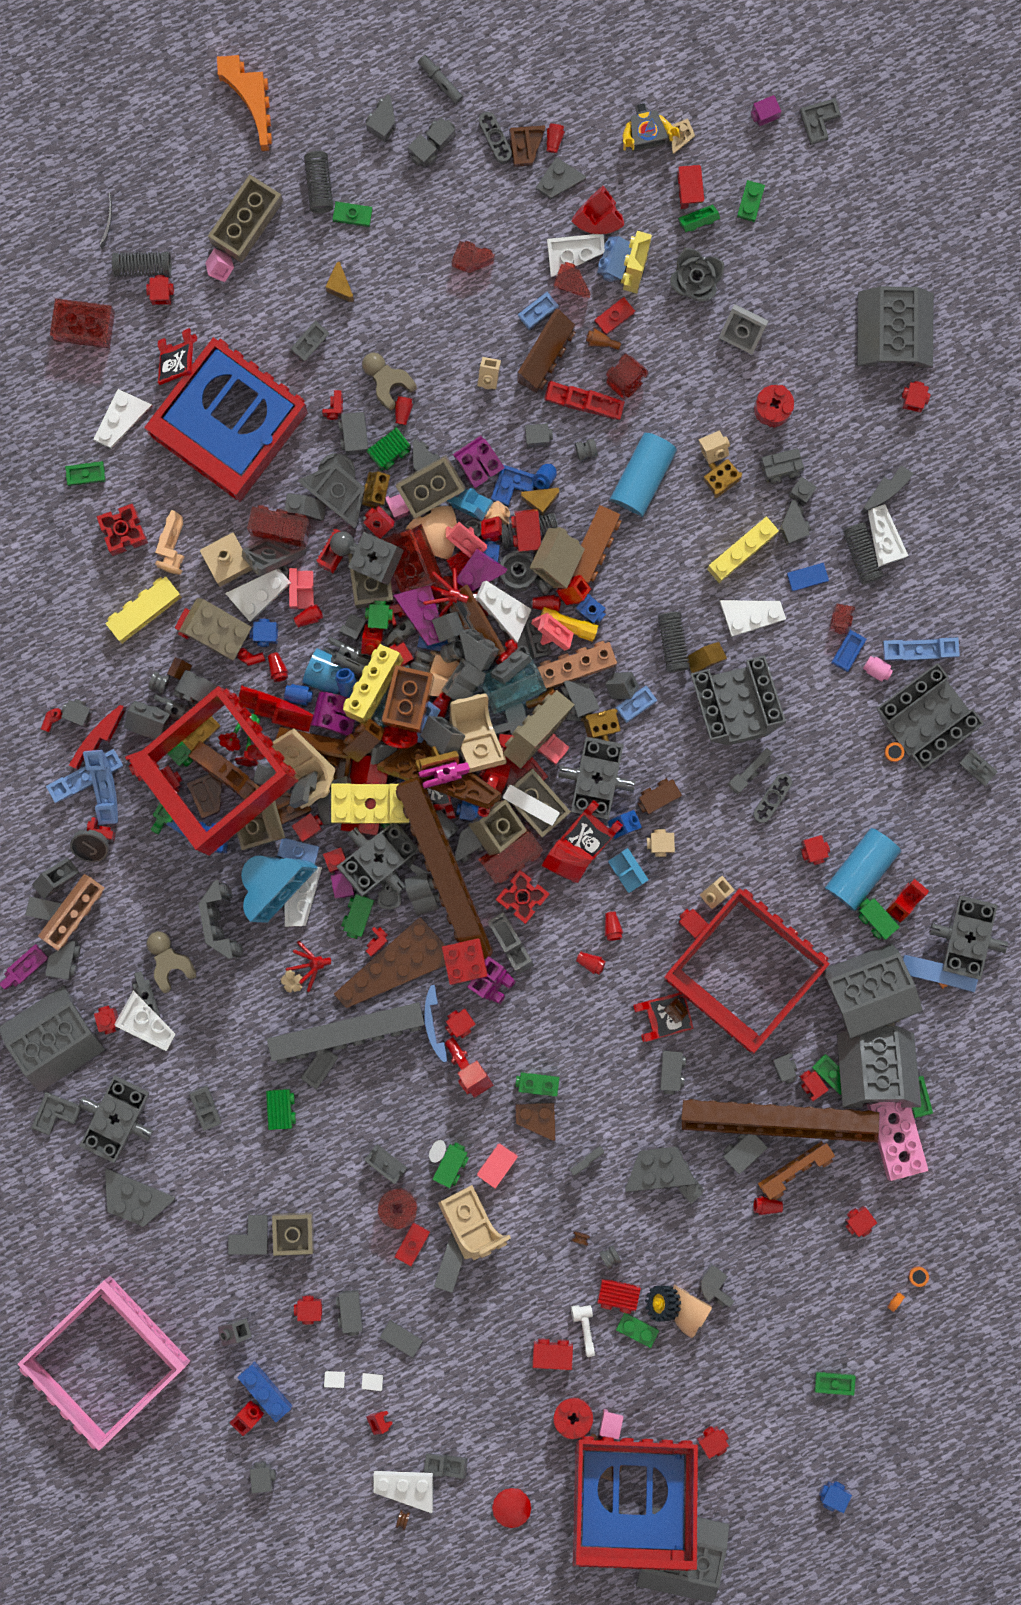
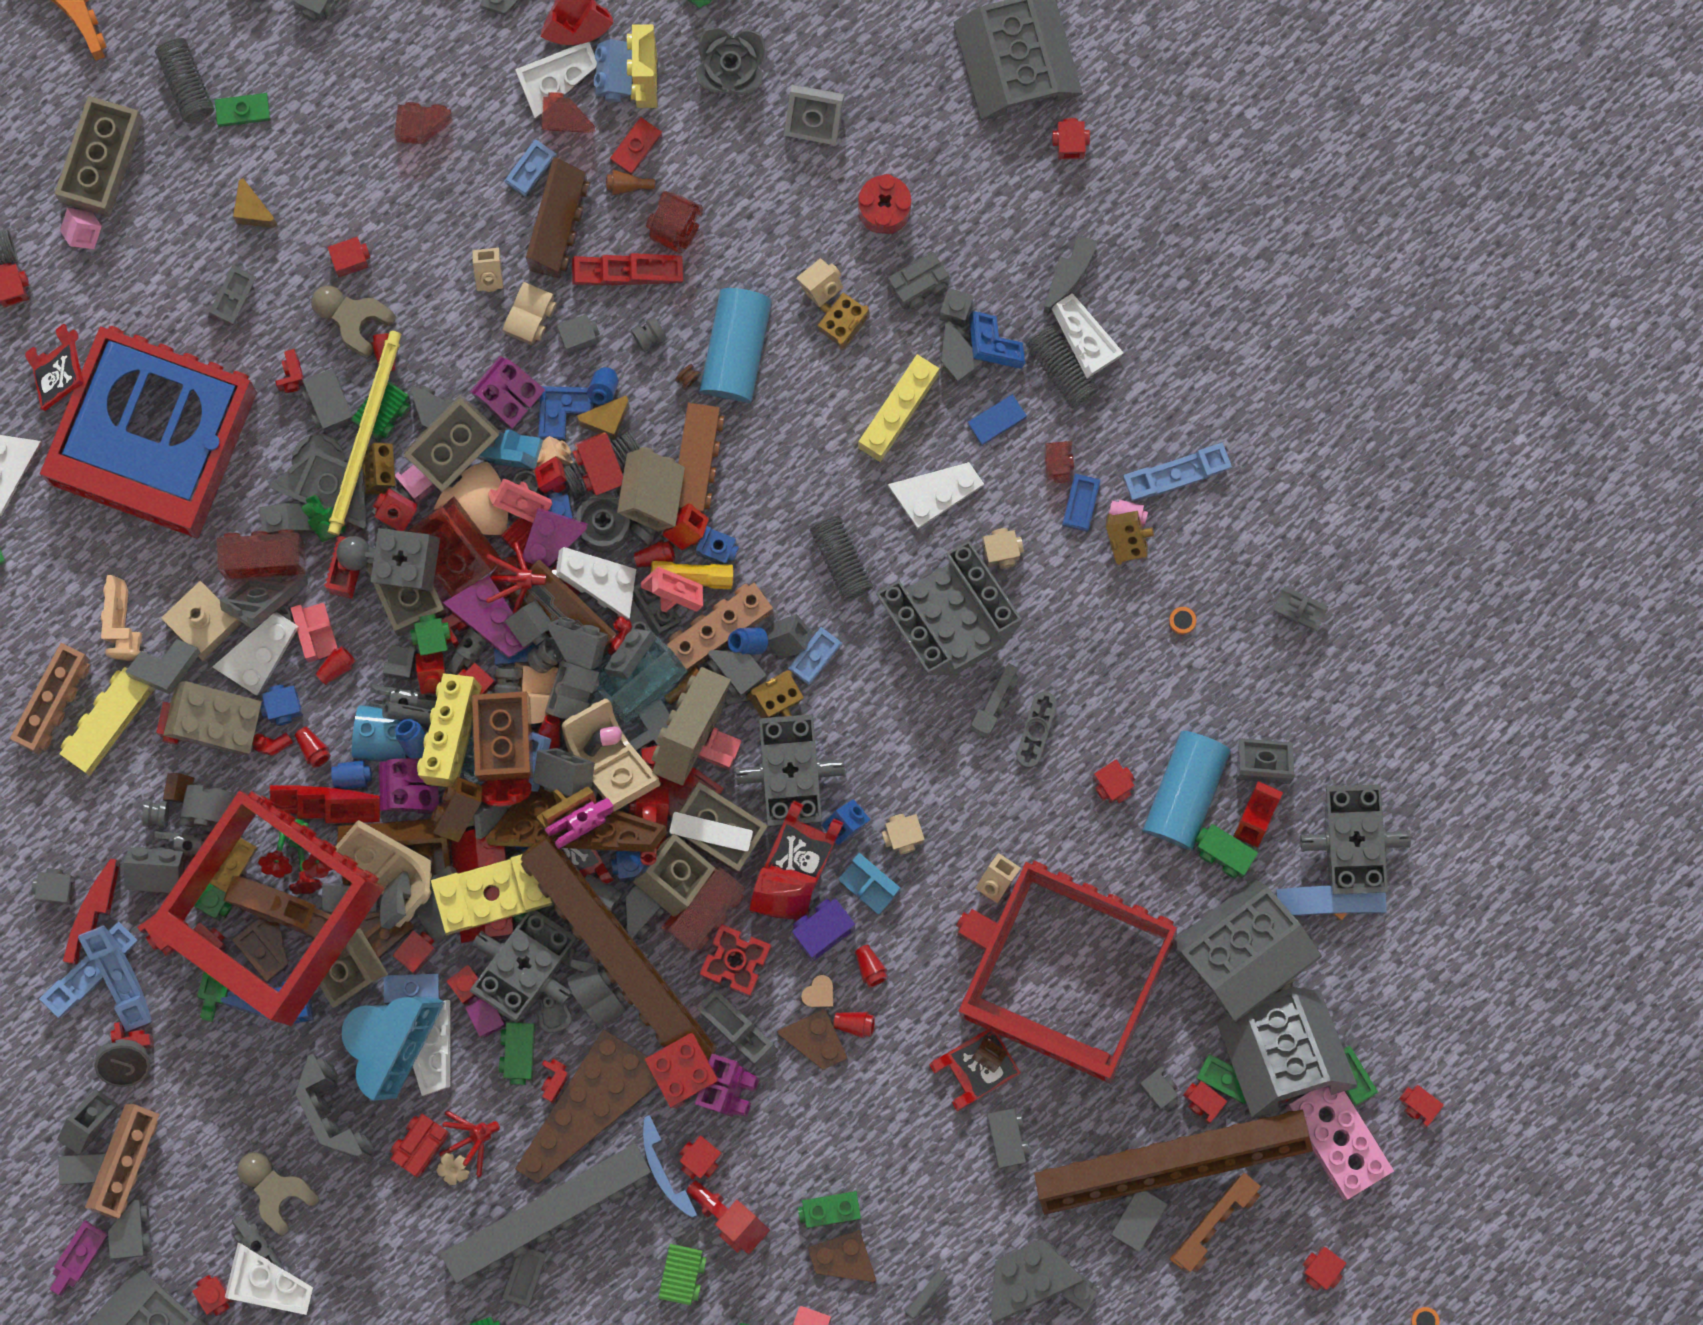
camera: 15 degrees left, 5 degrees down
(51, 717) = (19, 905): red arm -> none
(110, 582) = (50, 699): none -> nougat brick
(112, 524) = (31, 617): red brick -> none
(192, 588) = (165, 672): none -> dark grey tile
(274, 959) = (419, 1145): none -> red brick
(328, 515) = (319, 518): none -> green plate
(373, 462) = (364, 434): none -> light yellow piece
(396, 337) = (349, 256): none -> red brick
(425, 1098) = (681, 1275): none -> bright green brick
(475, 719) = (601, 738): none -> arm
(508, 412) = (529, 314): none -> tan brick
(561, 965) = (815, 1040): none -> reddish brown wing
(573, 934) = (819, 994): none -> light nougat tile
(587, 893) = (823, 929): none -> dark purple brick
(594, 681) = (748, 641): none -> blue brick
(604, 486) = (687, 376): none -> reddish brown bush
(659, 797) = (882, 772): reddish brown brick -> none
(706, 657) = (891, 565): pearl gold slope -> none
(766, 1206) = (1191, 1284): red cone -> none
(785, 667) = (1002, 548): none -> tan brick
(817, 524) = (988, 344): none -> blue tile
(874, 684) = (1127, 536): none -> pearl gold piece
(922, 865) = (1265, 761): none -> dark grey slope
(928, 717) = (1213, 560): dark grey slope -> none
(959, 1130) = (1420, 1104): none -> red brick

